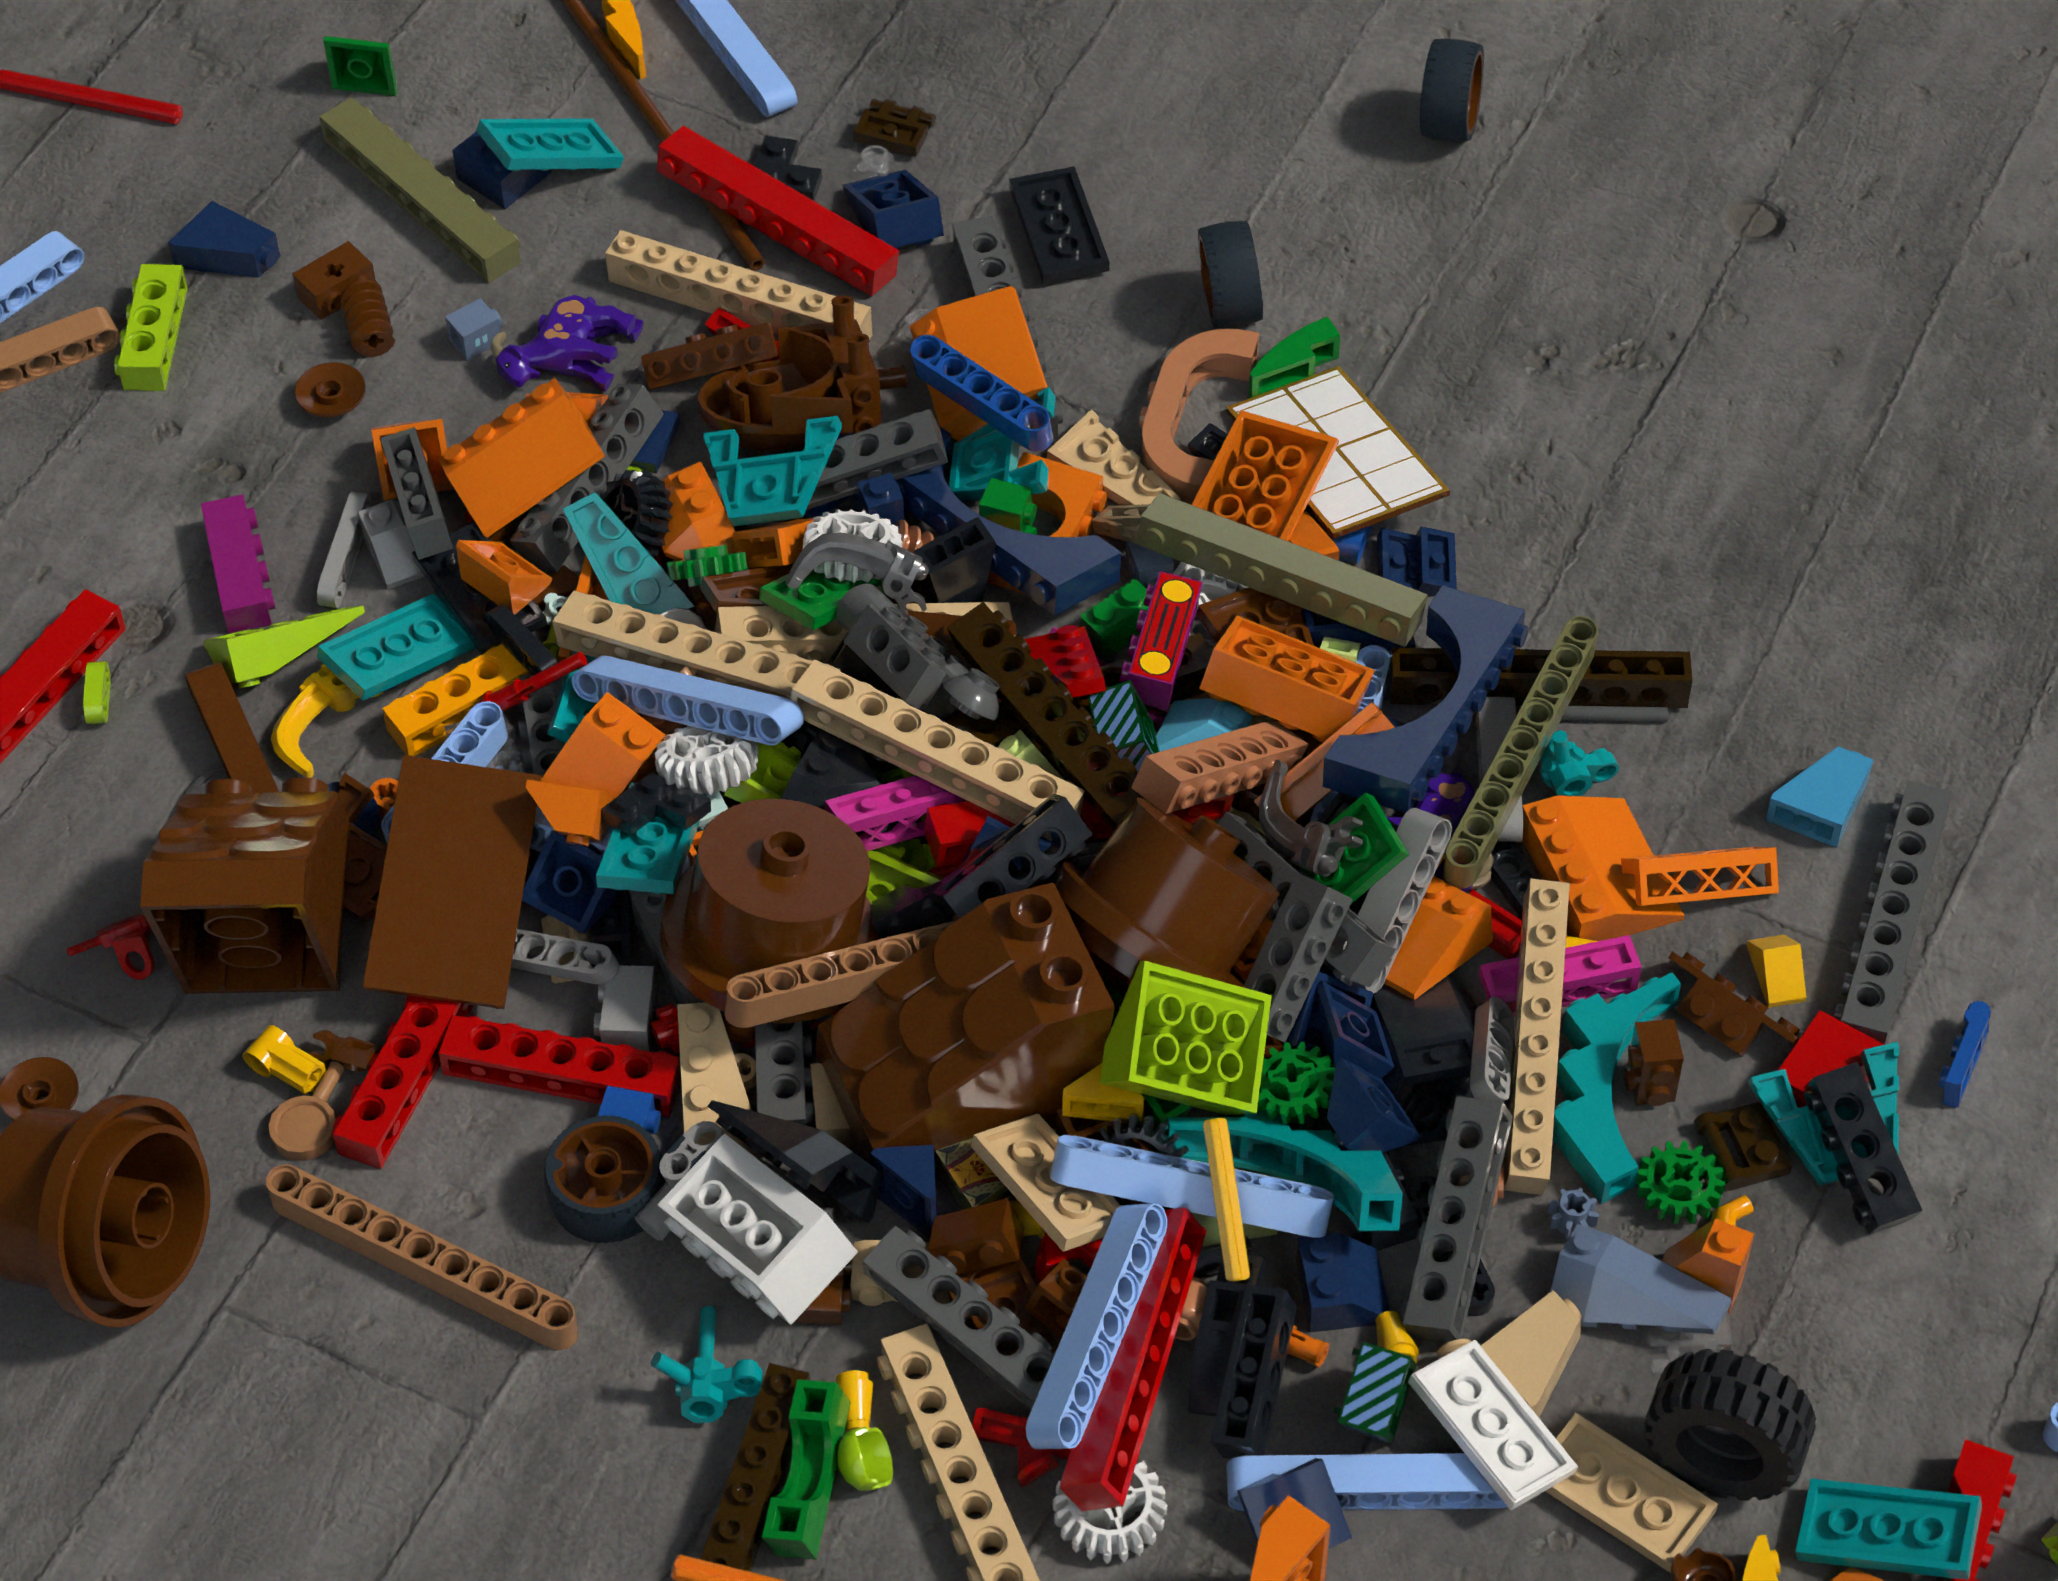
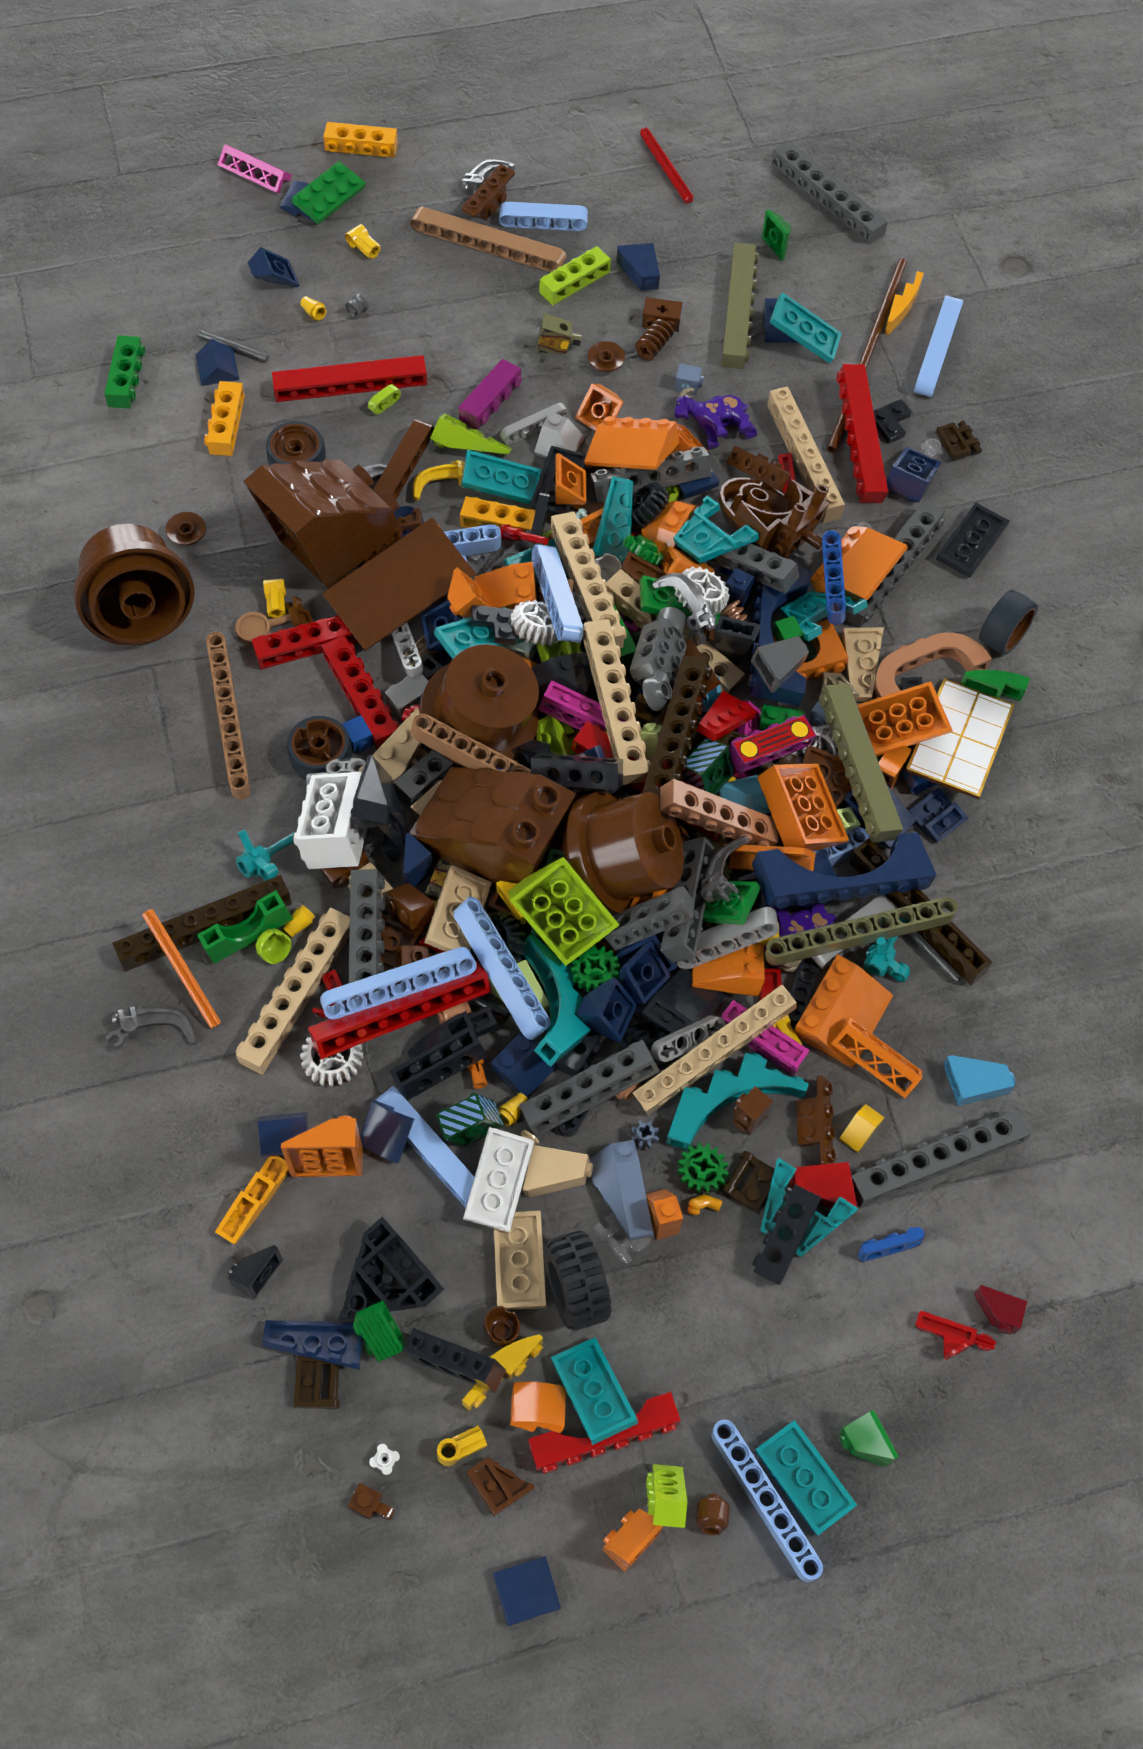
camera: 45 degrees right, 10 degrees up
(68, 859) = (295, 443): none -> reddish brown wheel
(231, 419) = (556, 335): none -> torso
(416, 493) = (575, 422): dark grey brick -> none
(1054, 539) = (779, 661): none -> dark grey slope
(1226, 1199) = (500, 985): yellow axle -> none

